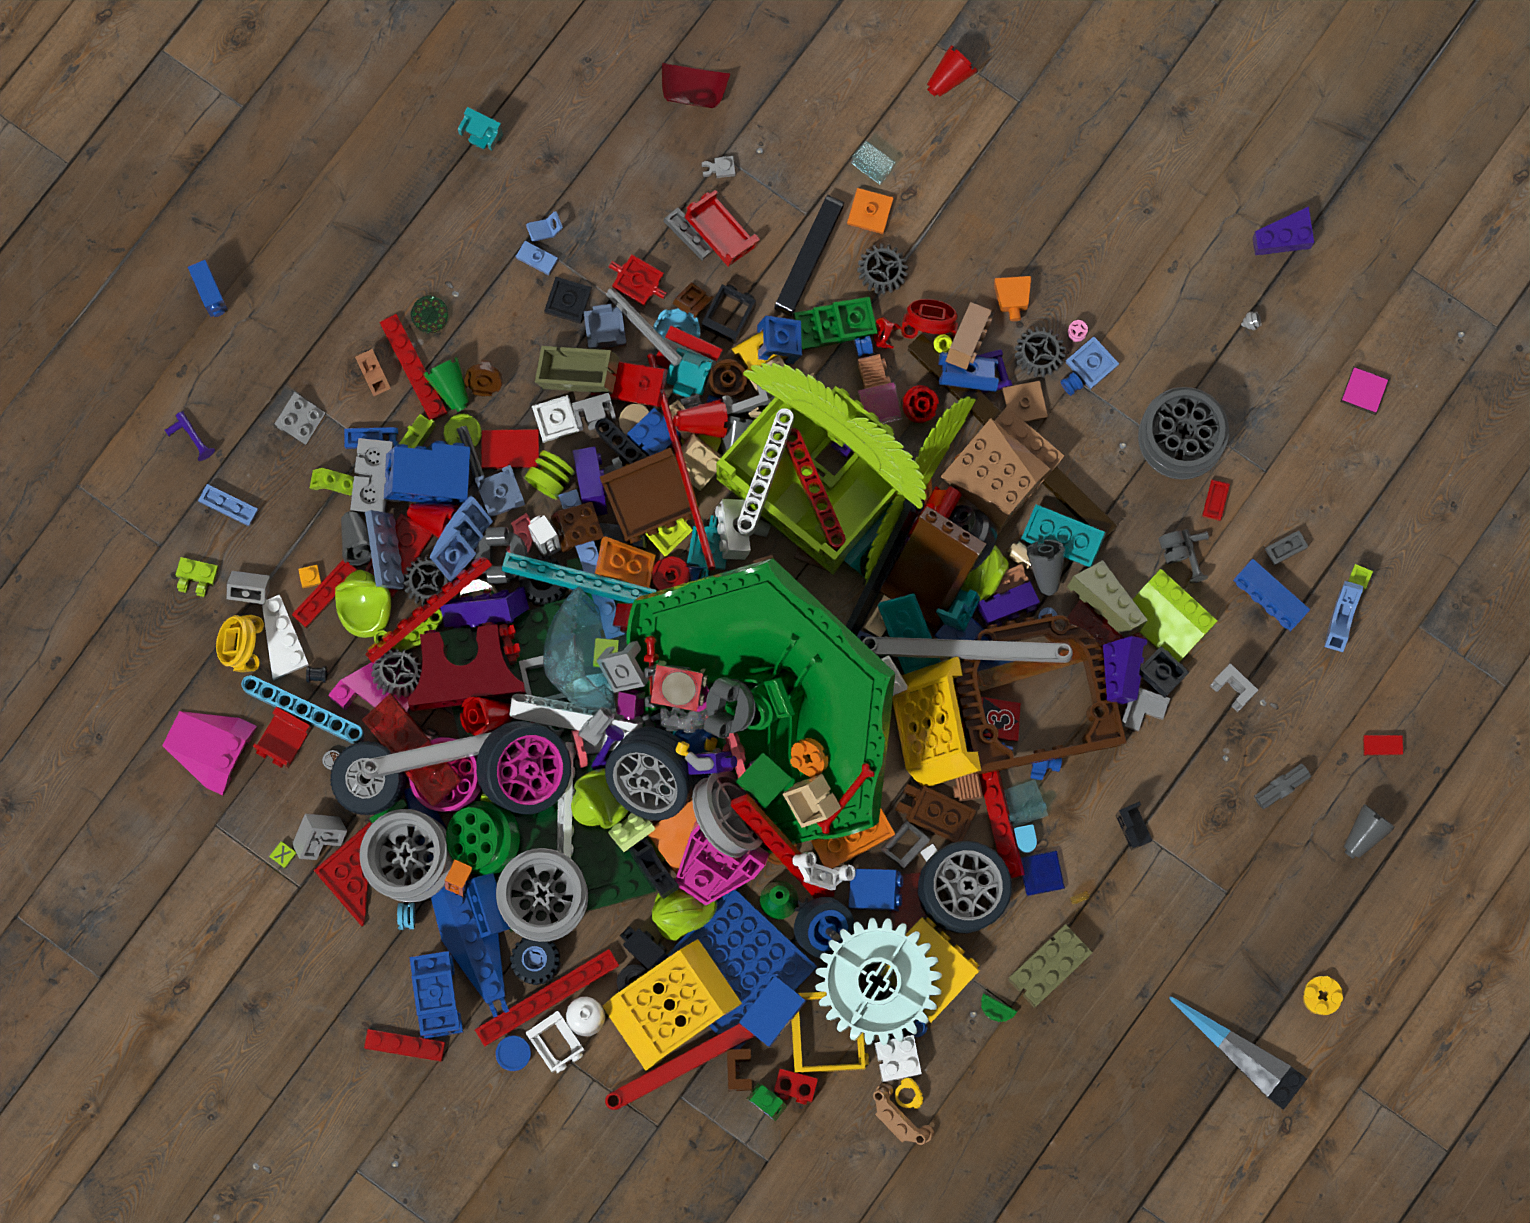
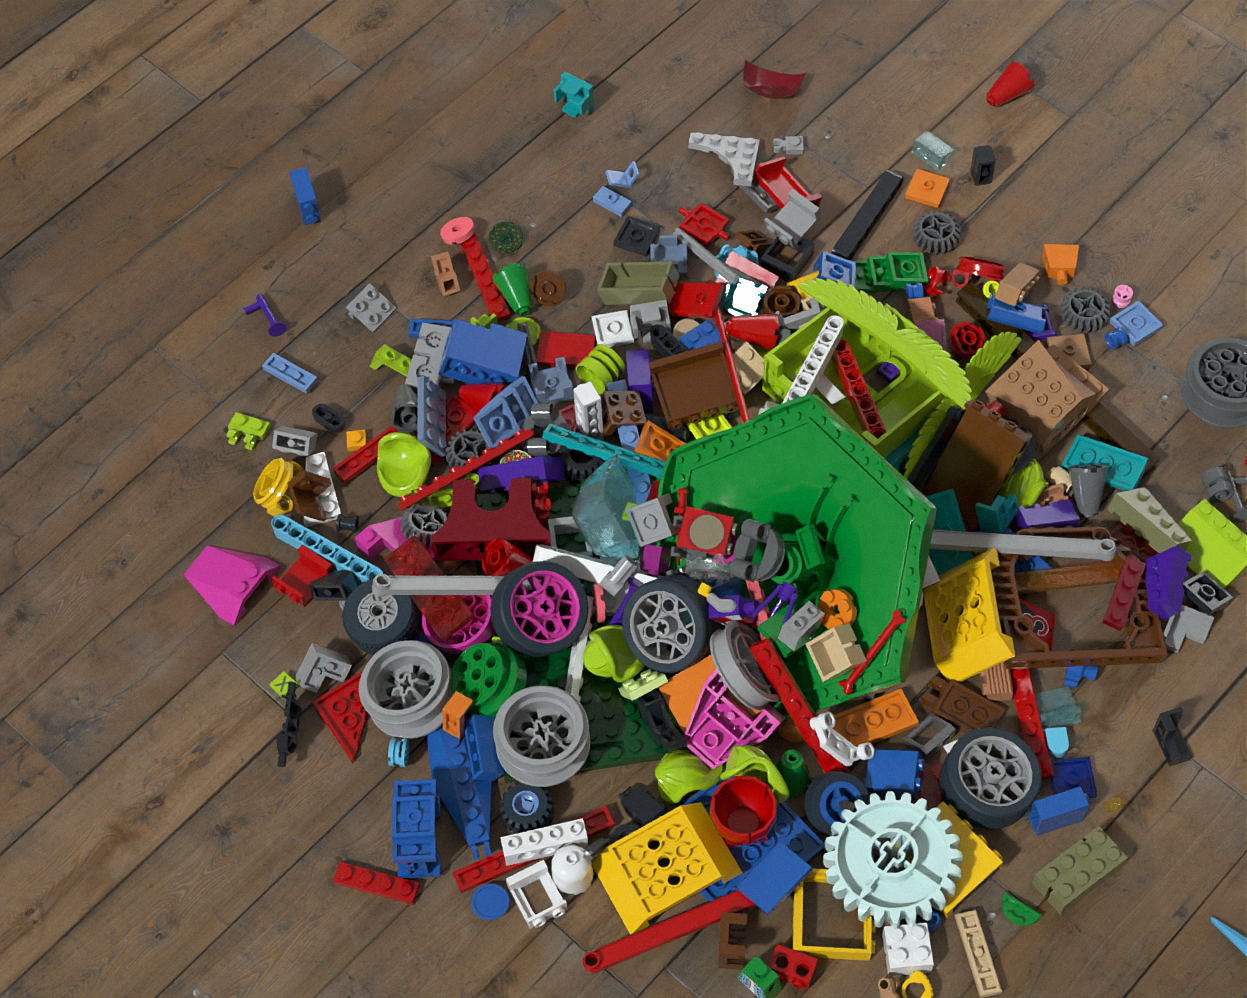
camera: 10 degrees right, 20 degrees down
(273, 656) = (305, 493): none -> reddish brown bracket
(277, 555) = (329, 419): none -> black plate
(299, 907) = (287, 740): none -> black plate
(316, 747) = (333, 586): none -> black slope
(370, 307) = (457, 230): none -> coral tile
(556, 994) = (543, 841): none -> white brick
(605, 996) = (595, 848): none -> dark grey axle
(662, 183) = (733, 150): none -> light grey plate
(731, 278) = (794, 219): none -> light grey panel
(738, 951) = (743, 811): none -> red plate
(747, 910) = (753, 762): none -> lime piece
(757, 745) = (786, 593): none -> dark purple plant
(777, 778) = (801, 625): none -> light grey brick
(784, 483) = (829, 390): none -> white sticker
(926, 182) = (982, 165): none -> black brick
(961, 1054) = (978, 954): none -> tan plate
(1029, 912) = (1058, 811): none -> blue brick
(1083, 685) = (1124, 593): none -> dark red plate

